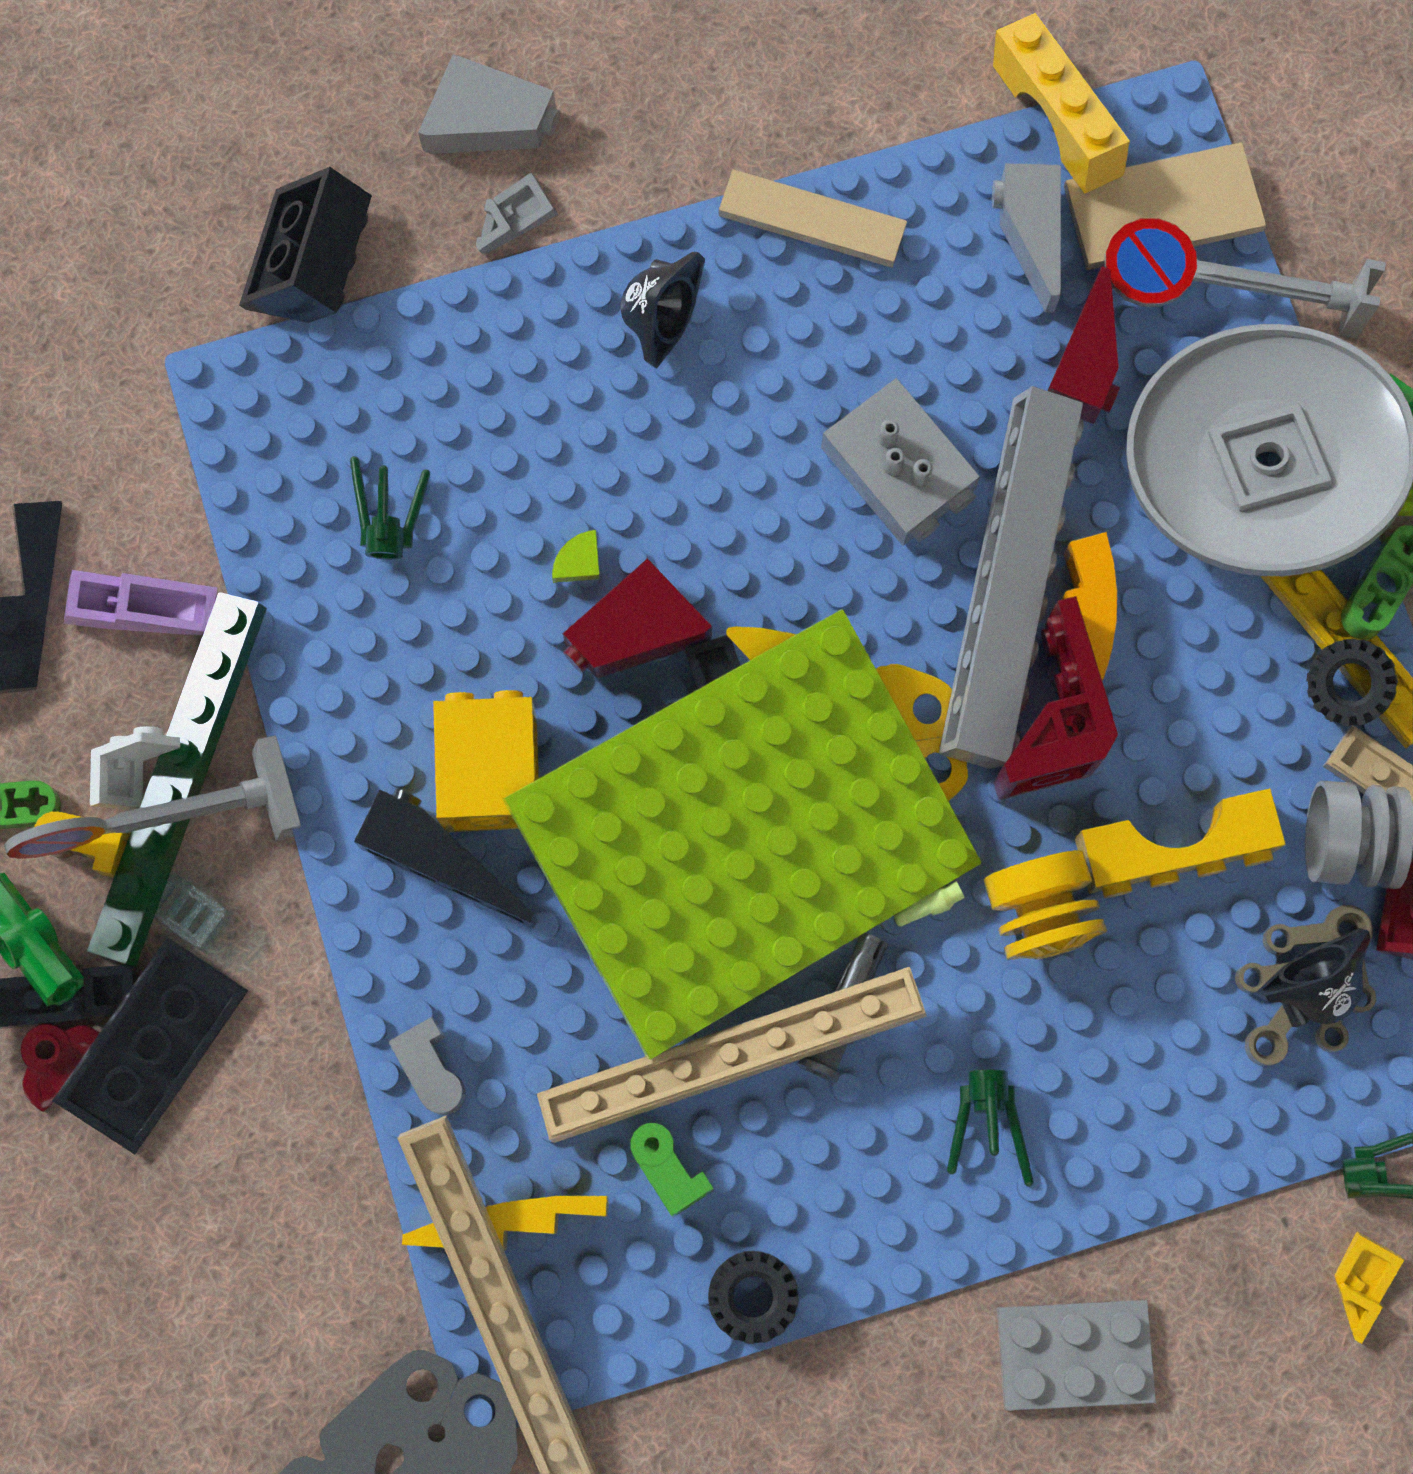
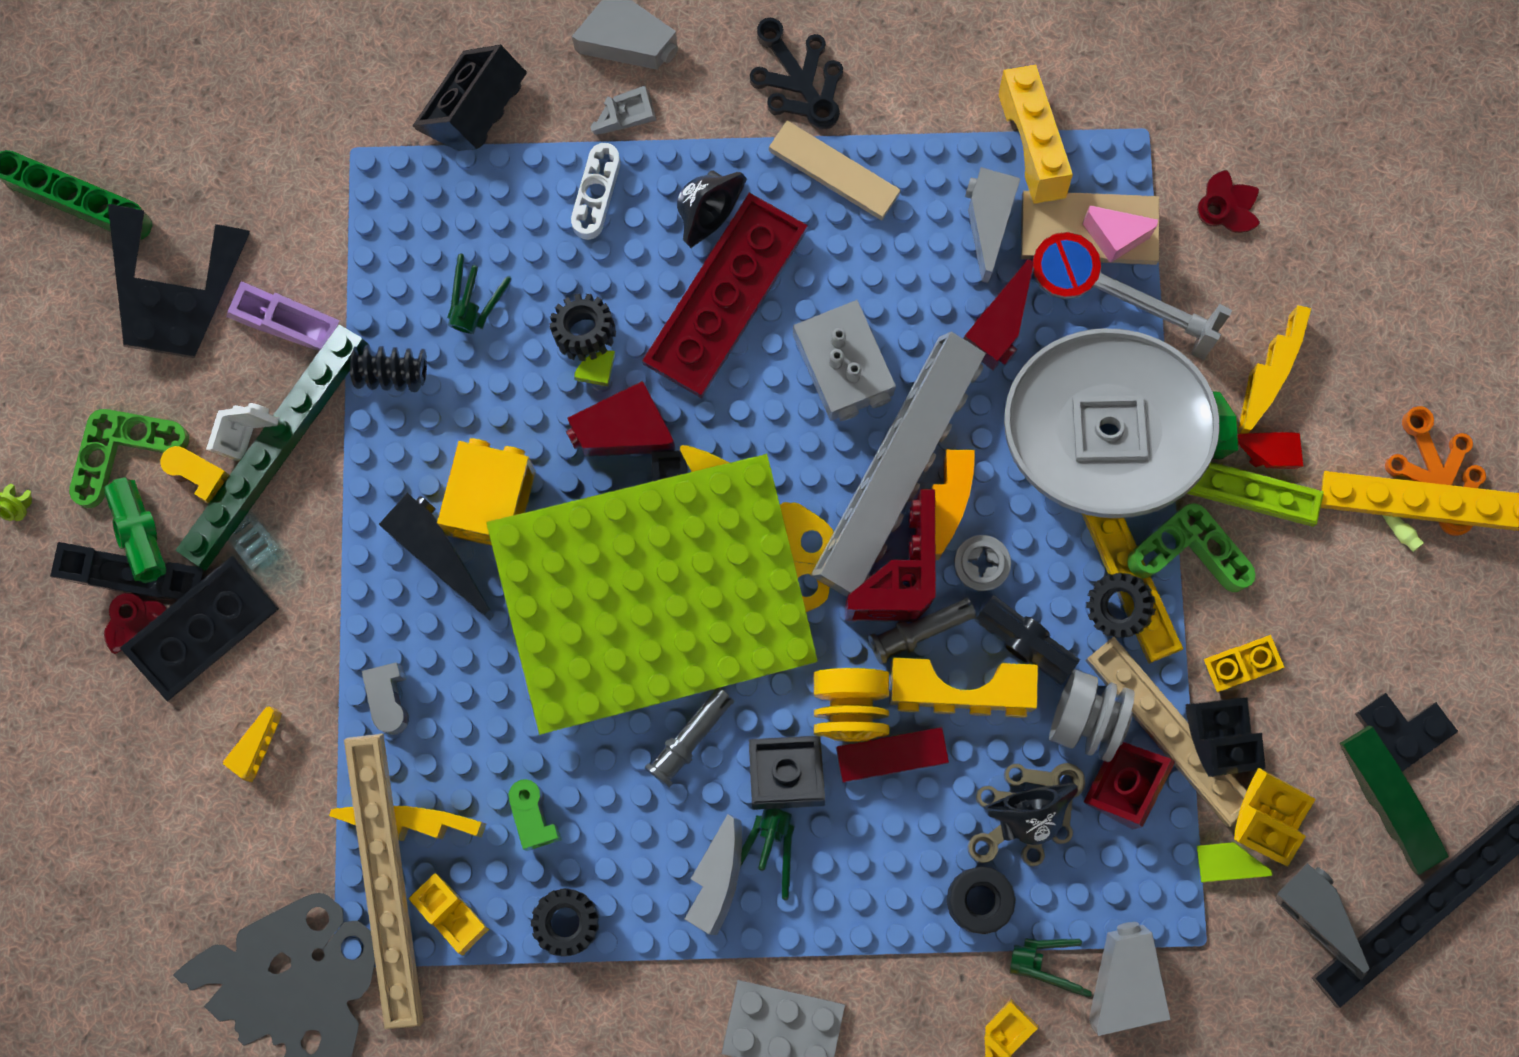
camera: 15 degrees right, 0 degrees up
(267, 1186) = (250, 750): none -> yellow slope
(268, 789) = (332, 472): light grey piece -> none
(305, 633) = (388, 370): none -> black piece
(494, 297) = (608, 181): none -> white beam
(537, 488) = (582, 310): none -> black tyre
(595, 1329) = (448, 913): none -> yellow slope
(719, 418) = (725, 295): none -> dark red plate
(728, 113) = (798, 79): none -> black plant
(731, 1055) = (599, 747): tan tile -> none
(934, 904) = (778, 680): yellowish green piece -> none
(936, 1179) = (718, 876): none -> light grey slope
(985, 1019) = (786, 772): none -> black tile
(1088, 797) = (906, 635): none -> dark grey pin
(1113, 958) = (892, 755): none -> dark red tile
(1168, 660) = (995, 553): none -> light grey gear
(1203, 200) = (1117, 231): none -> bright pink slope
(1244, 760) = (1027, 640): none -> black piece
(1316, 1108) = (1003, 895): none -> black tyre
(1334, 126) = (1232, 202): none -> dark red plate

